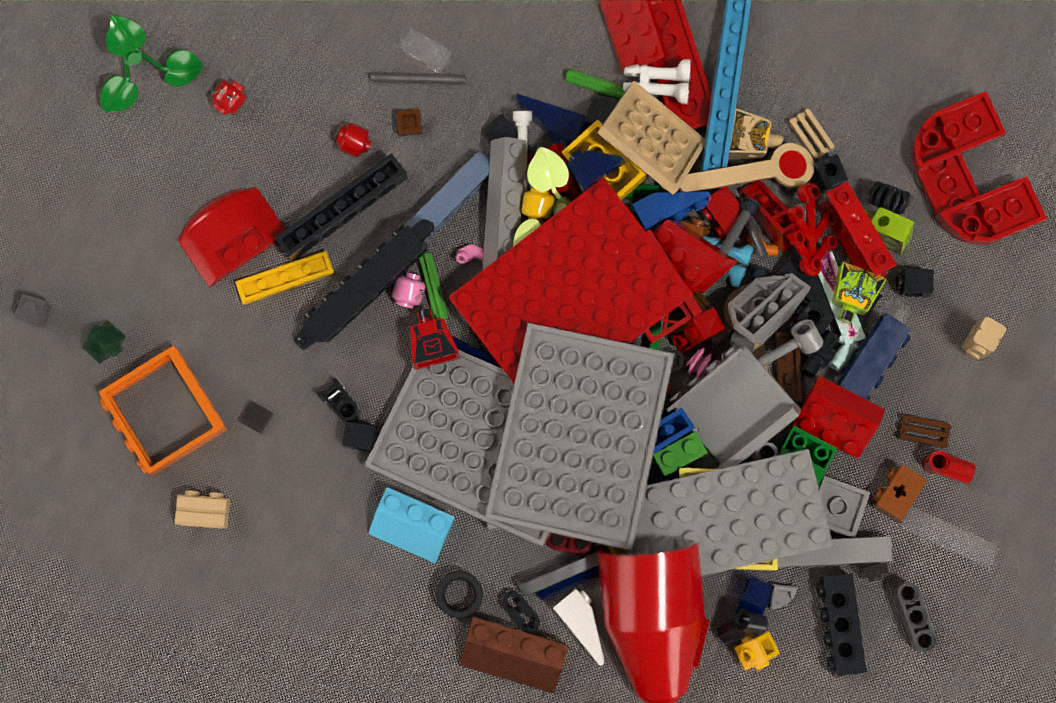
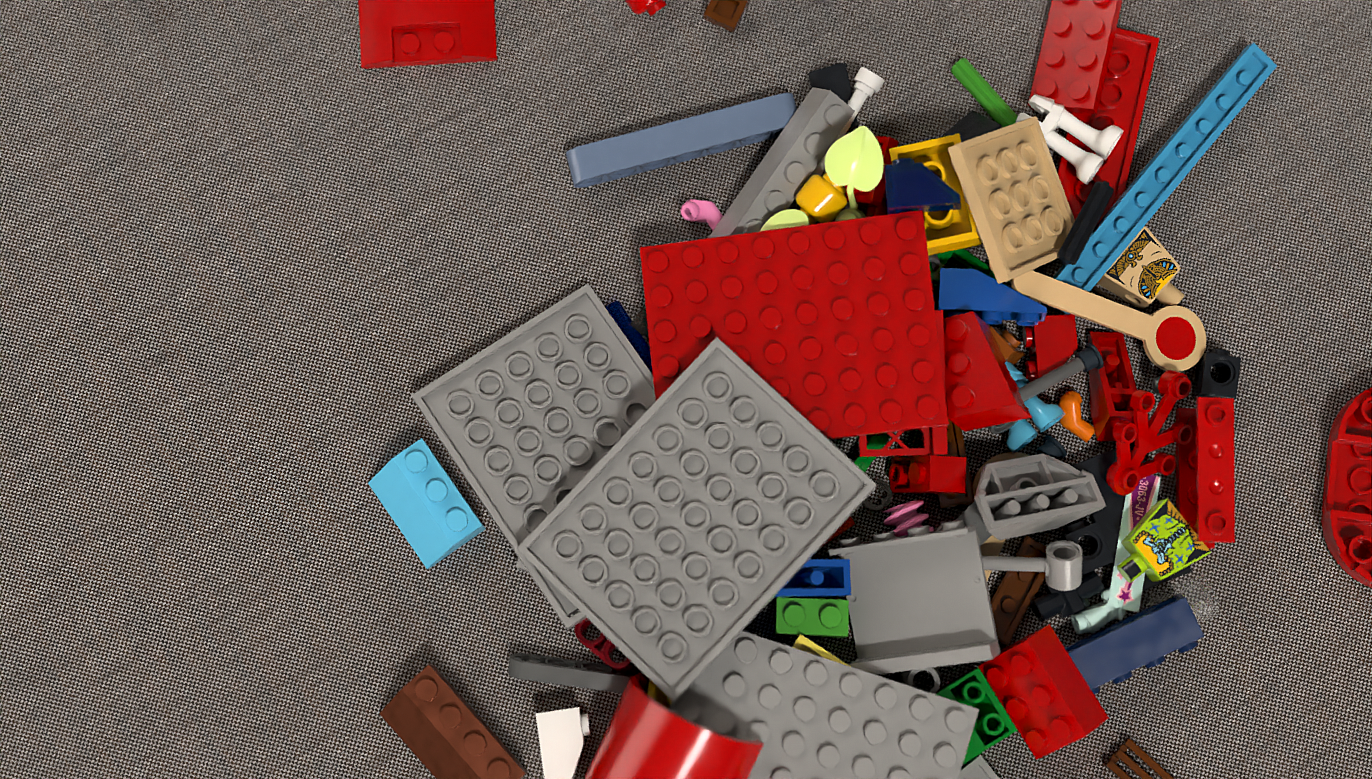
camera: 30 degrees right, 0 degrees up
(104, 342) = (192, 58): clear green brick -> none
(122, 424) = (154, 172): orange window -> none
(202, 511) = (183, 333): tan brick -> none
(256, 418) = (319, 259): clear smoke plate -> none
(284, 277) = (459, 109): yellow tile -> none
(338, 399) = (431, 295): black piece -> none
(341, 207) = (577, 63): black brick -> none
(359, 437) = (428, 356): black brick -> none
(365, 285) = (550, 173): black hinge -> none
(408, 290) = (598, 212): bright pink head -> none
(431, 341) = (586, 291): torso -> none
(433, 286) = (632, 227): bright green axle -> none
(455, 576) = (410, 609): black tyre -> none
(526, 608) = (485, 695): black beam -> none
(555, 121) = (906, 109): clear blue slope -> none
(568, 583) = (573, 694): clear blue axle -> none
(700, 126) = (1085, 223): none -> black axle
(754, 235) = (1073, 399): flat silver bar -> none
(815, 124) = (1235, 314): tan tile -> none
(889, 197) = (1275, 452): black gear -> none
(892, 228) = (1256, 494): lime torso -> none
(915, 282) = (1245, 580): black brick -> none
(983, 338) = (1291, 703): tan brick -> none

